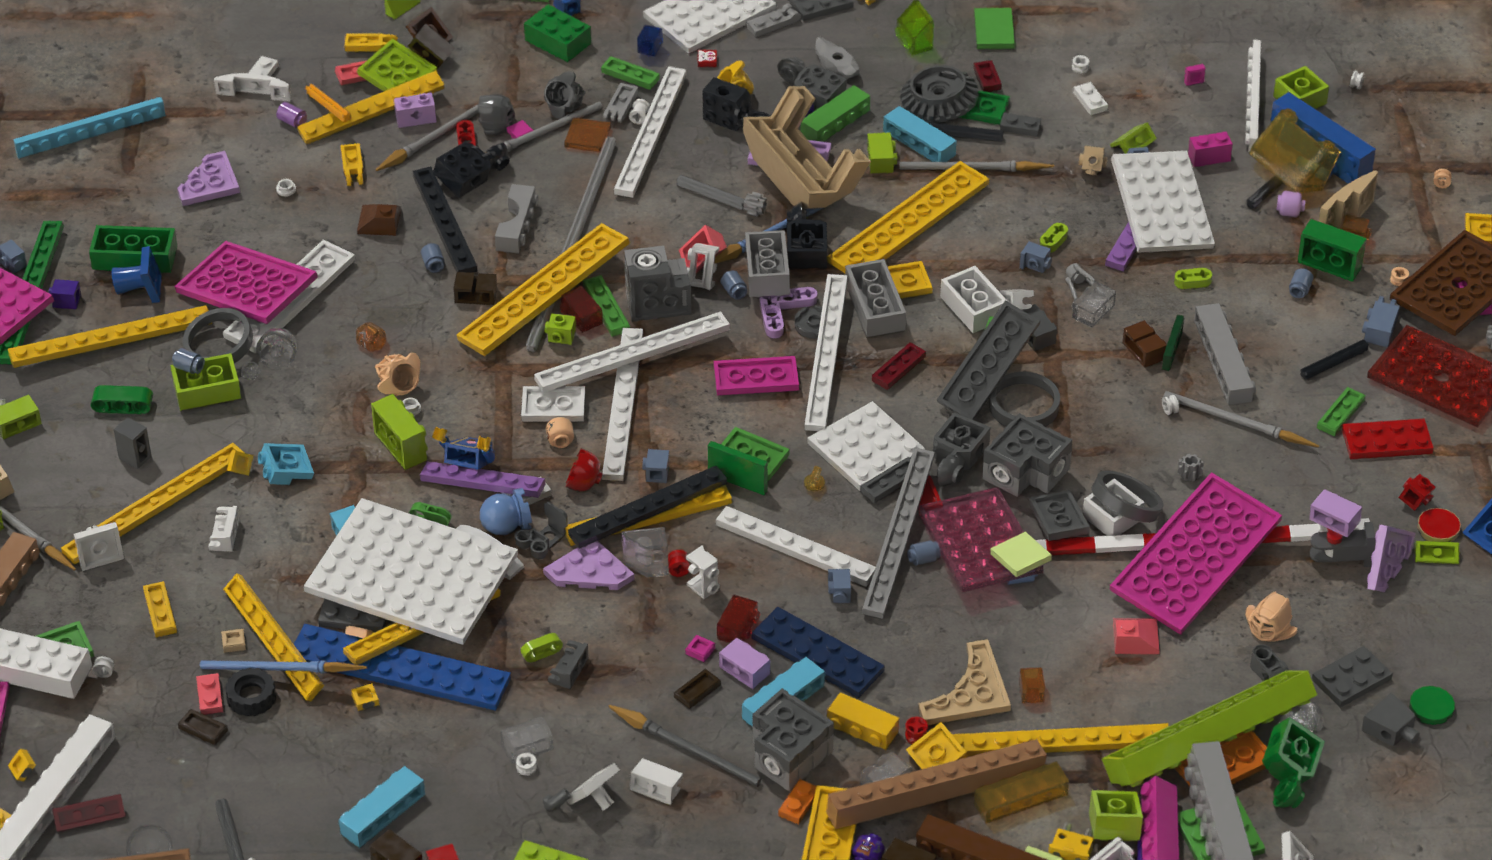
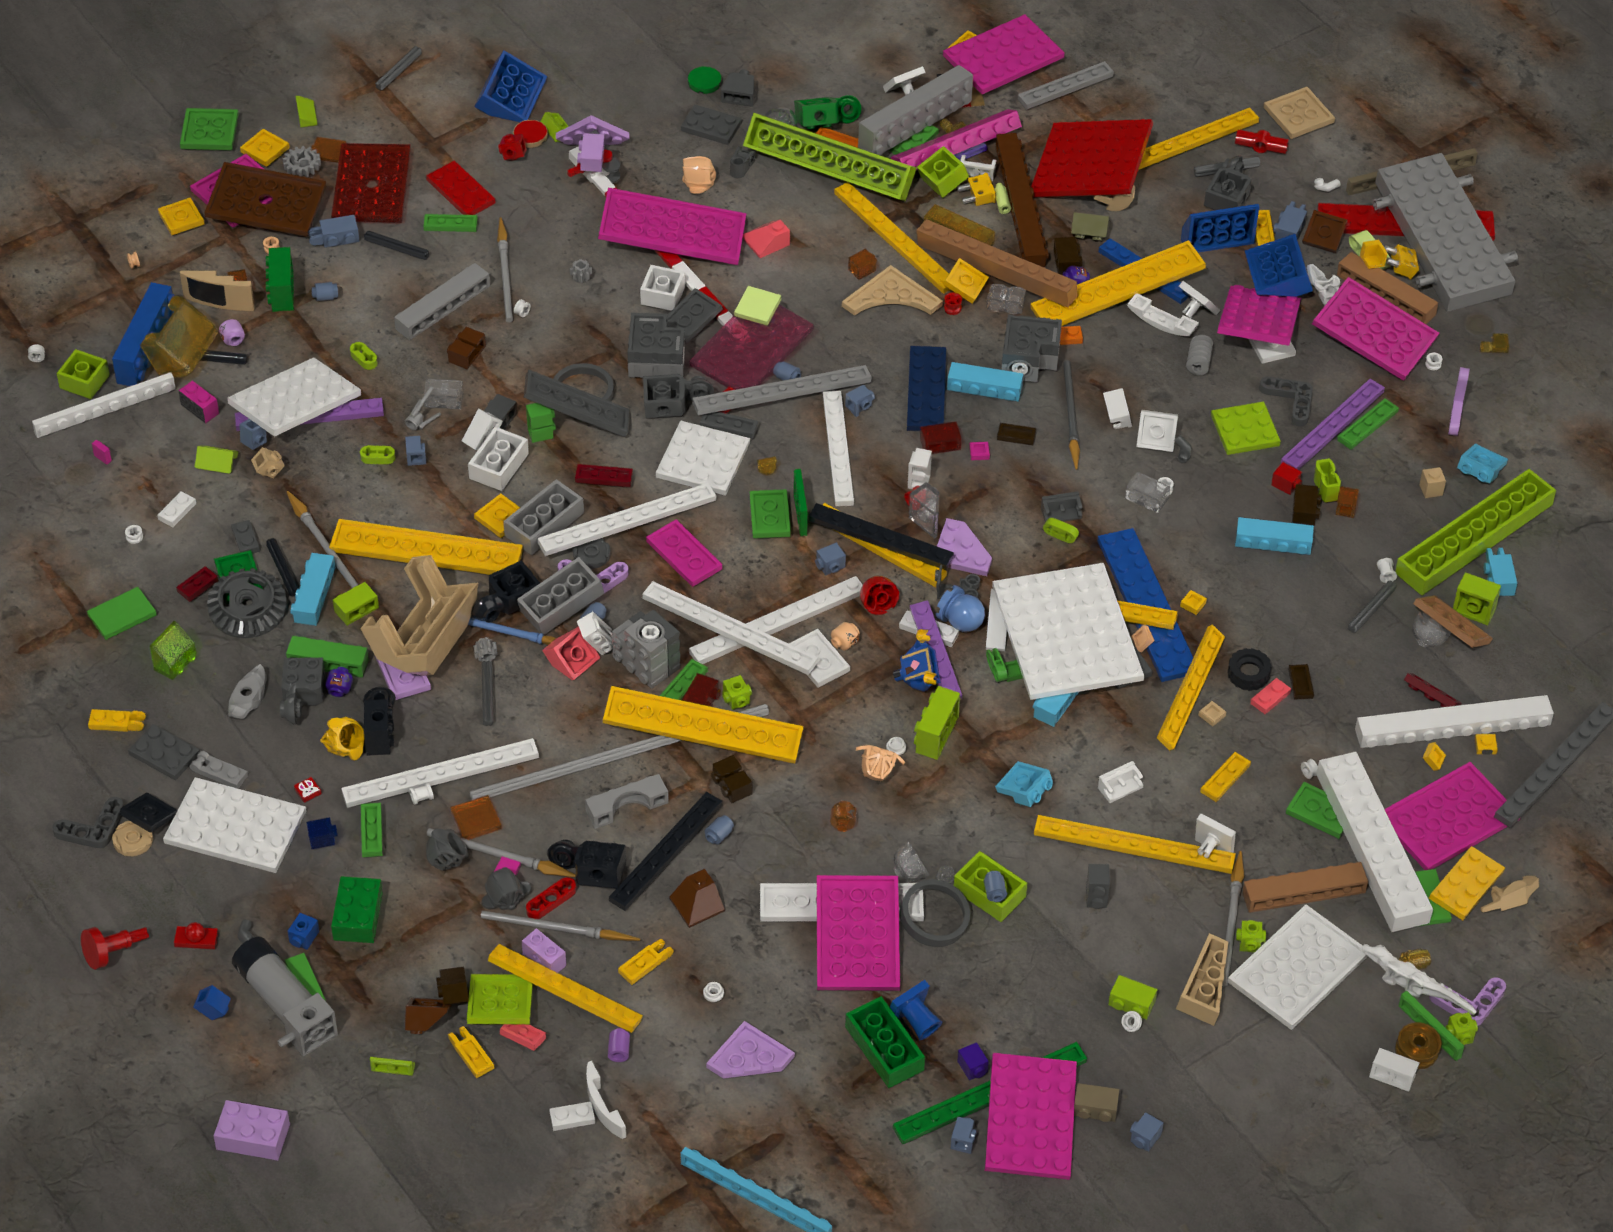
camera: 125 degrees left, 5 degrees up
(103, 337) = (994, 993): yellow plate -> none
(121, 399) = (1052, 938): green beam -> none
(240, 462) = (1051, 810): yellow plate -> none
(313, 666) = (1202, 626): medium blue piece -> none
(328, 103) = (589, 1016): light orange axle -> none
(621, 102) = (418, 814): light grey hinge -> none
(744, 663) = (975, 415): lavender brick -> none
(863, 721) = (971, 331): yellow brick -> none
(1123, 507) = (657, 290): dark grey piece -> none
(1173, 342) = (448, 333): dark green tile -> none

